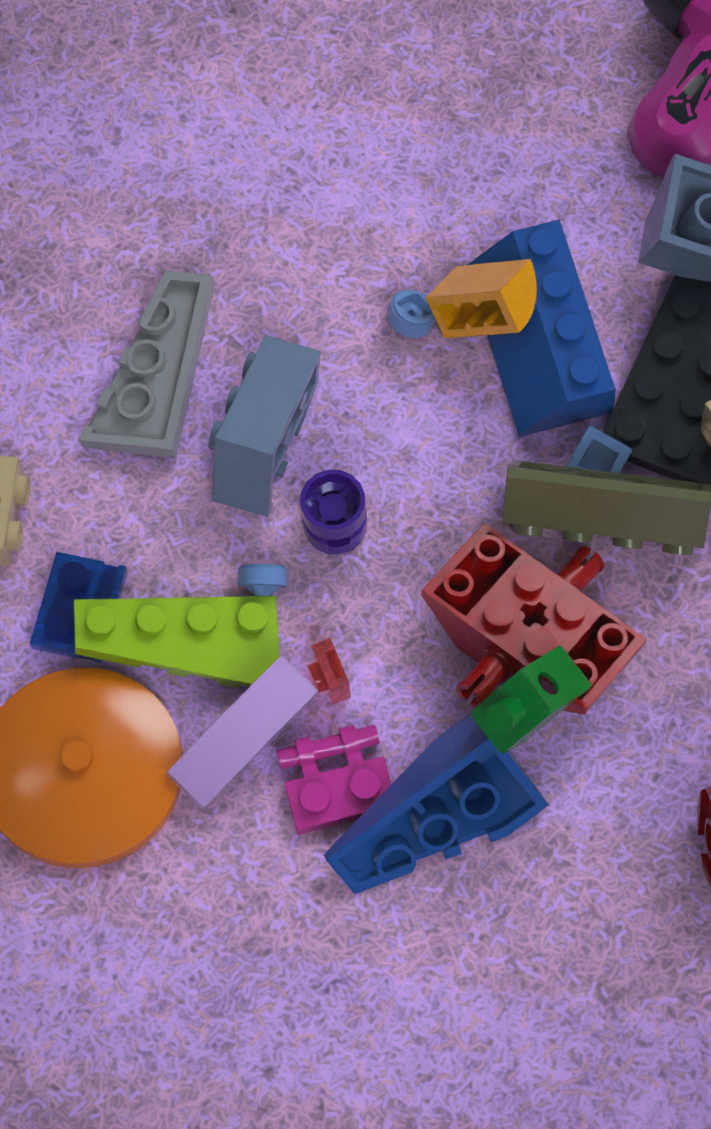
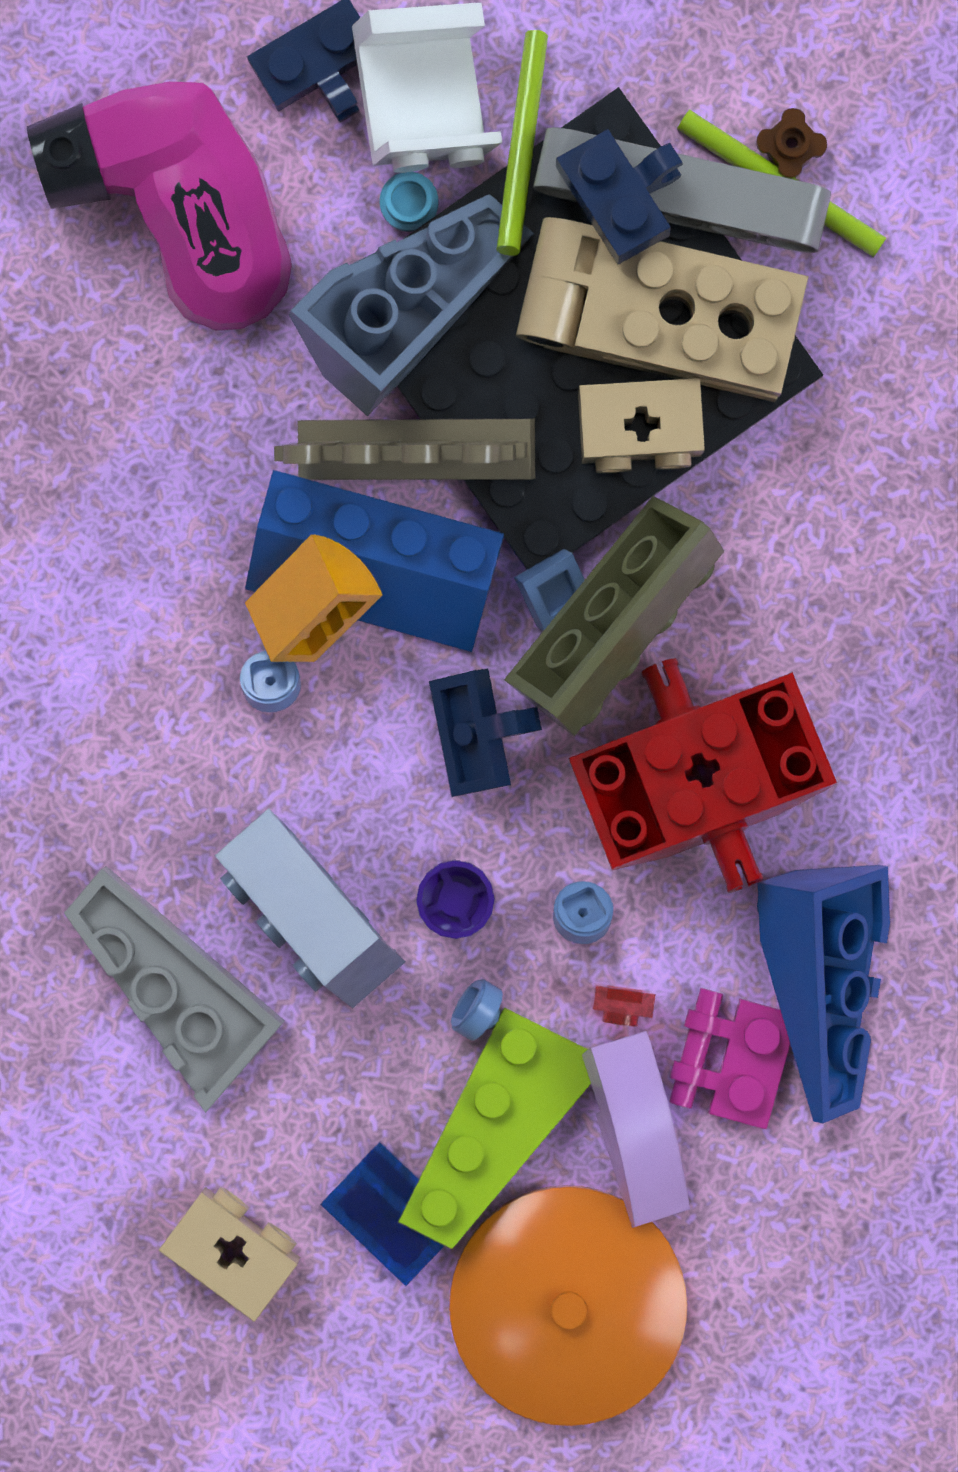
camera: 65 degrees left, 20 degrees up
(378, 610) = (582, 912): none -> medium blue tile
(463, 458) = (474, 731): none -> dark blue plate
(523, 706) = (806, 858): green torso -> none
(633, 303) = (412, 449): none -> dark tan fence

